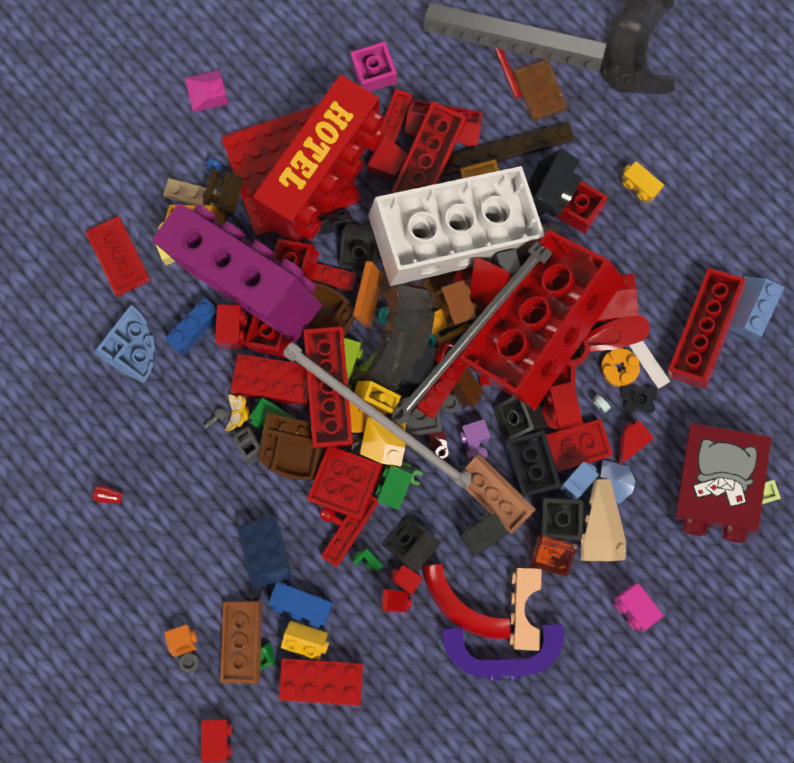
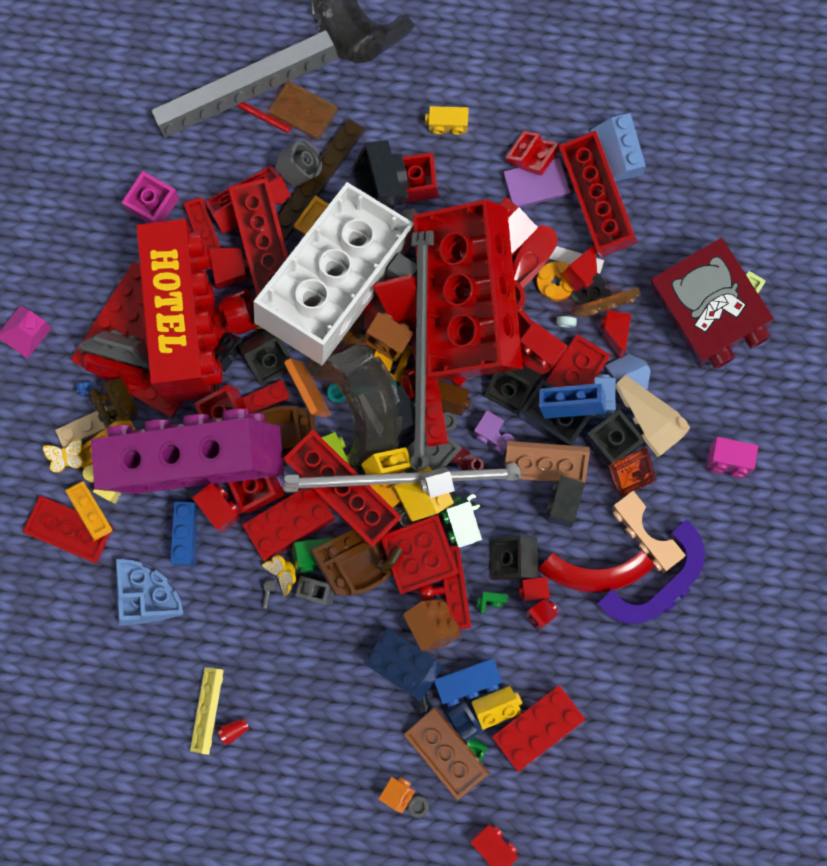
camera: 35 degrees left, 0 degrees up
(101, 465) = (206, 710): none -> light yellow plate
(141, 254) = (88, 510): none -> light orange tile
(158, 202) = (64, 457): none -> yellow animal
(243, 167) = (114, 369): none -> red plate
(256, 152) = (117, 347): none -> dark grey wedge
(273, 631) = (464, 722): none -> dark blue panel
(309, 540) = (432, 624): none -> dark orange brick
(323, 468) = (392, 559): none -> dark brown arm
(363, 198) = (239, 312): none -> red brick
(398, 440) = (437, 482): none -> brick
(502, 125) = (298, 163): none -> dark grey brick
(550, 464) = (572, 401): none -> blue brick
(642, 414) = (606, 303): none -> clear orange plate
(645, 374) = (582, 270): none -> red slope
(668, 282) = (530, 188): none -> medium lavender tile
(684, 257) = (532, 153): none -> red slope

